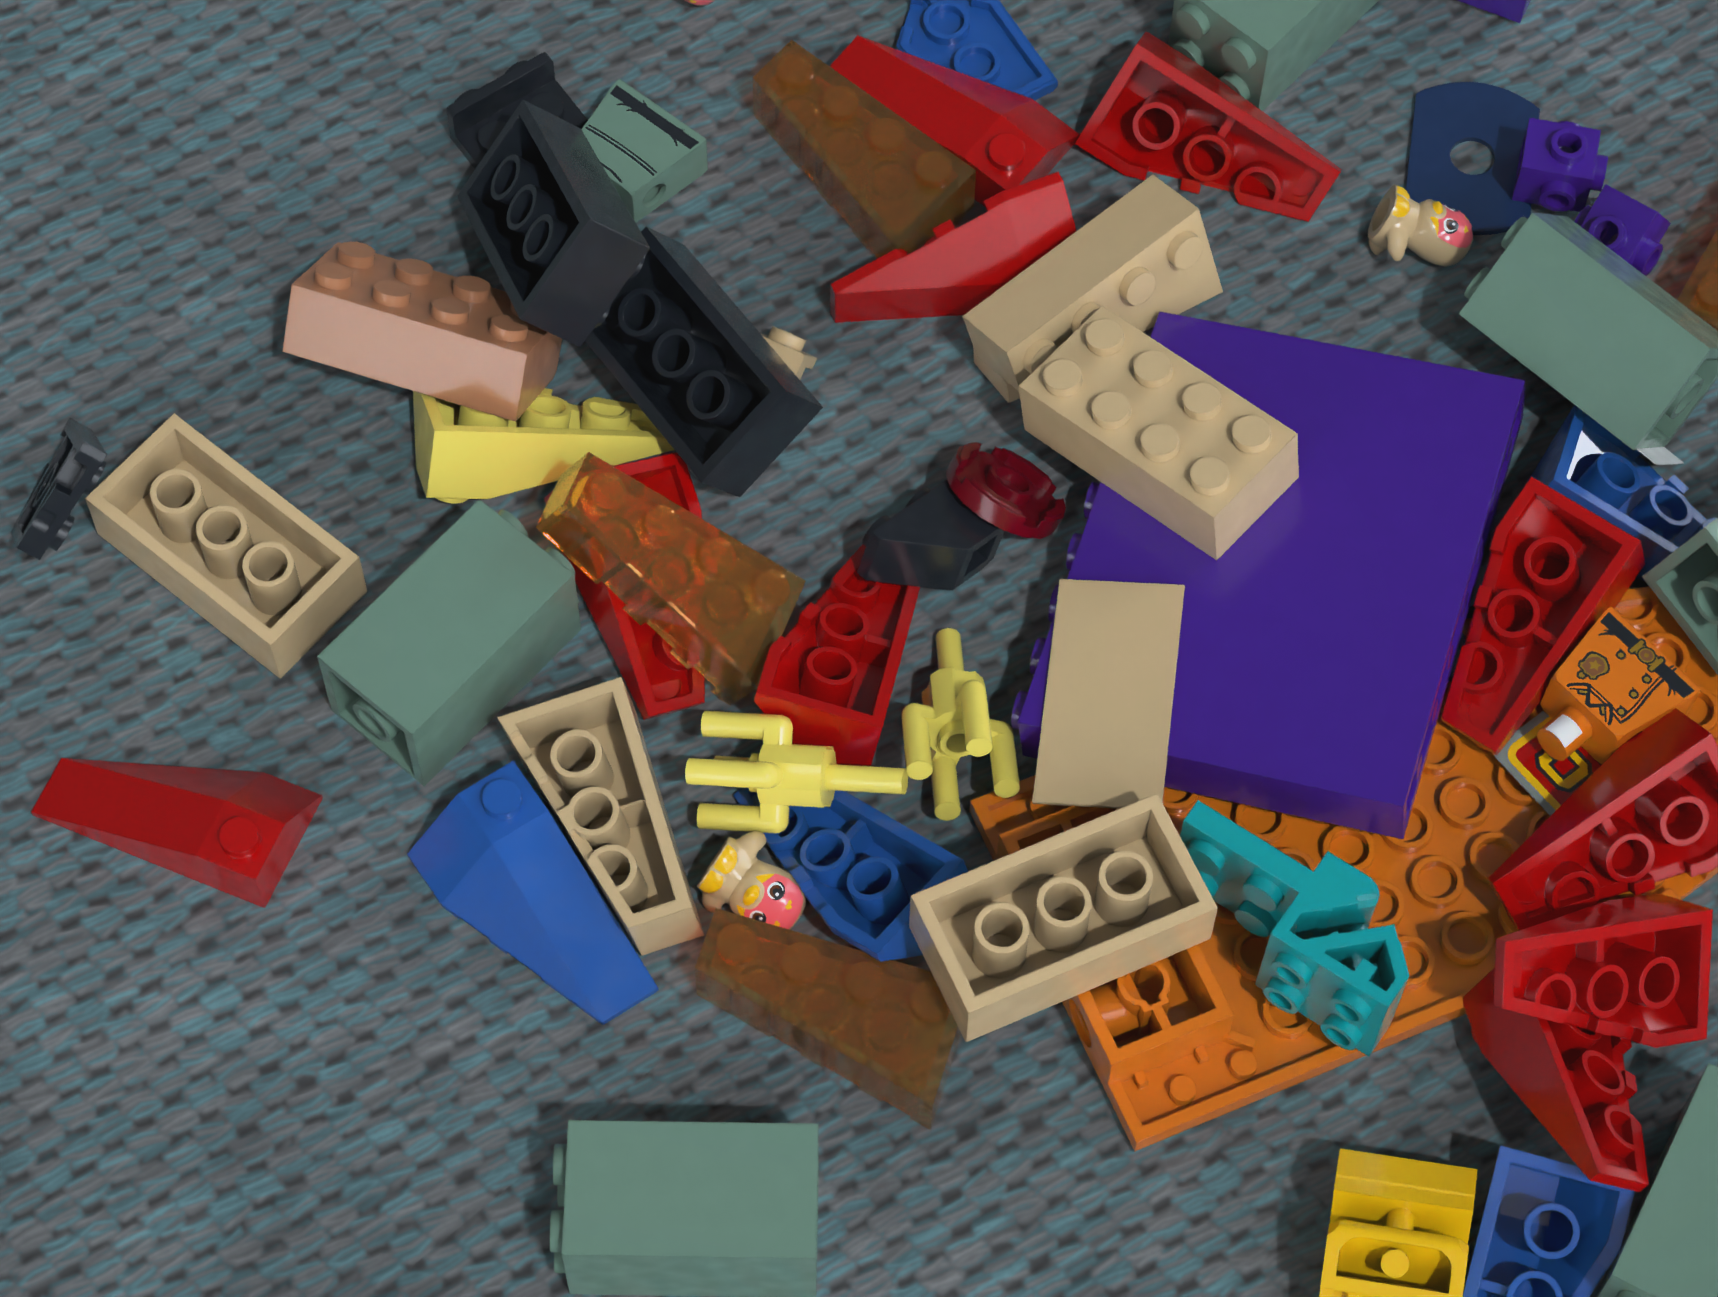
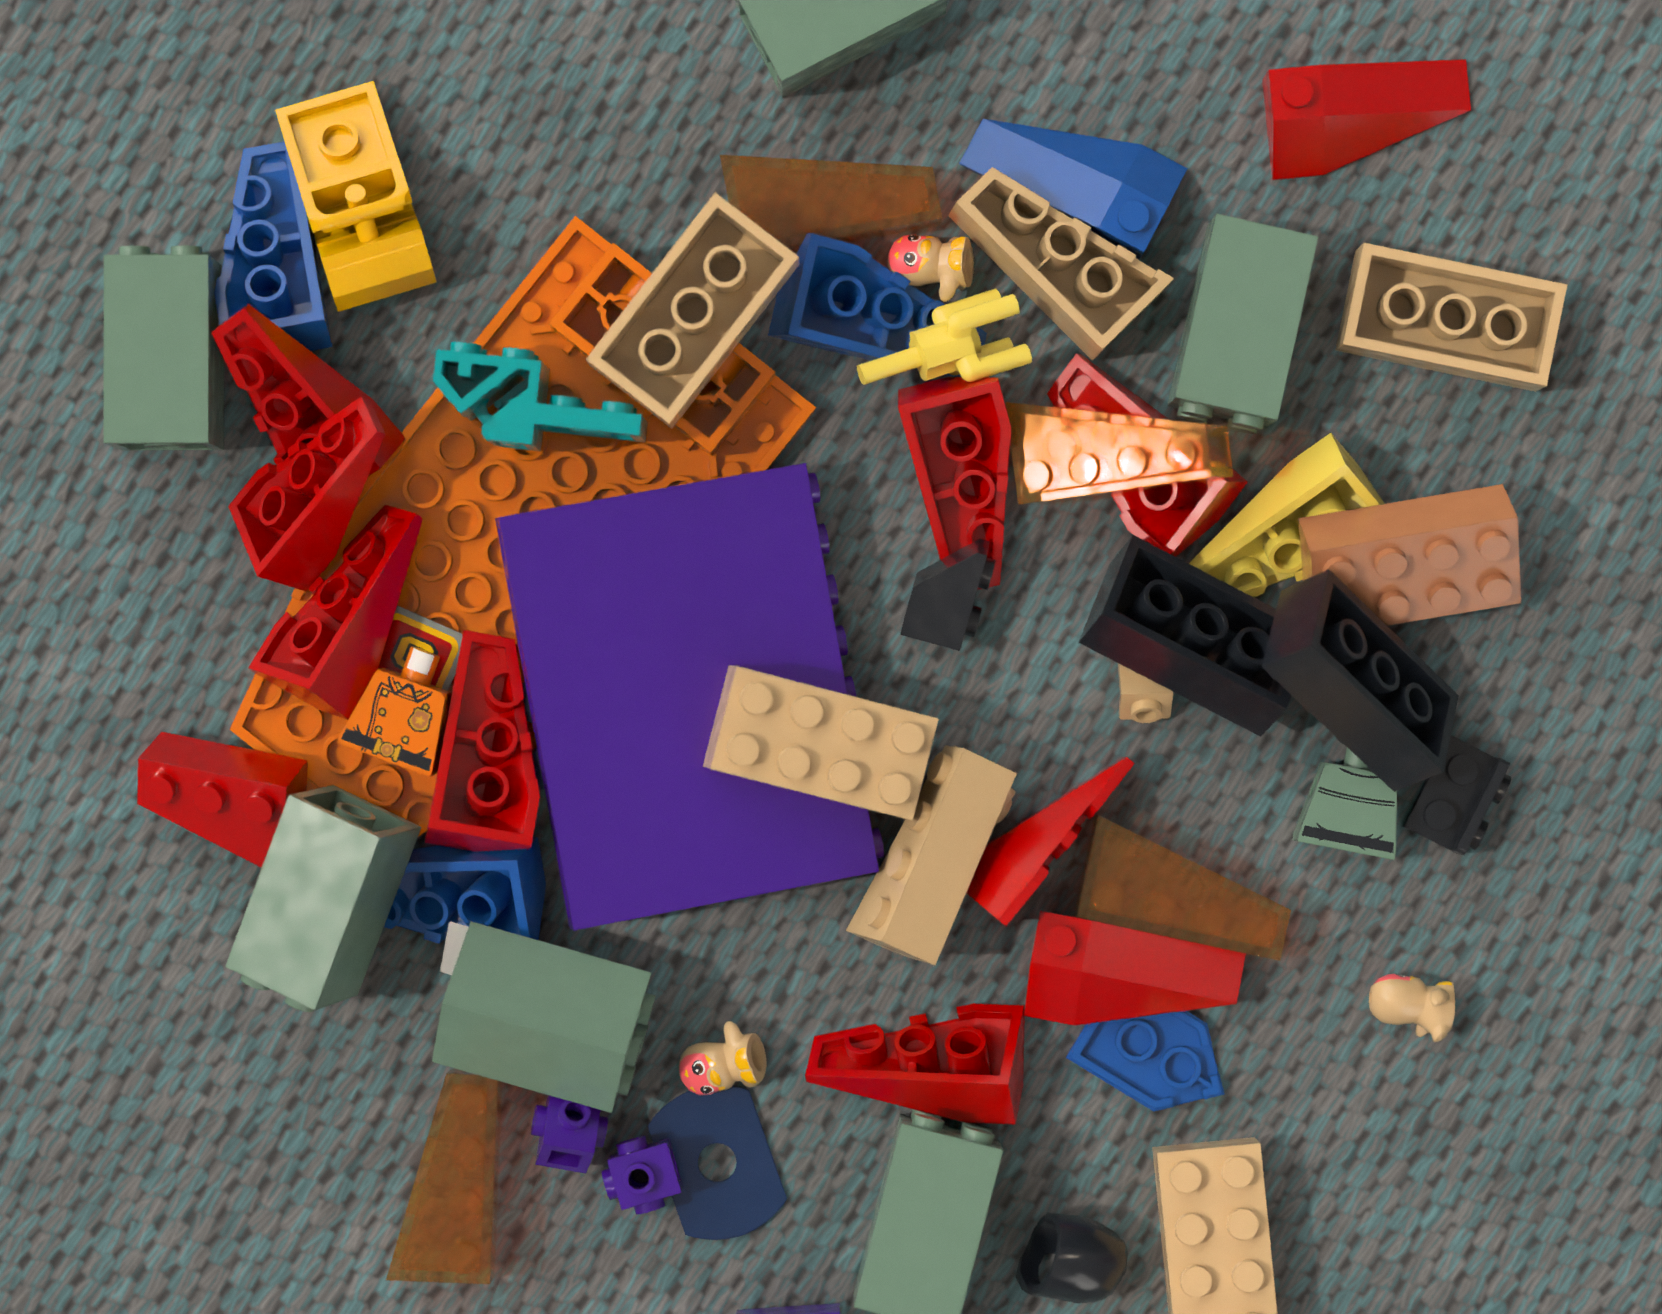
camera: 155 degrees right, 25 degrees up
(71, 473) = (1592, 288): black wing -> none
(955, 725) = (852, 452): light yellow plant -> none
(1005, 490) = (916, 662): dark red tile -> none
(1109, 693) = (751, 515): tan piece -> none

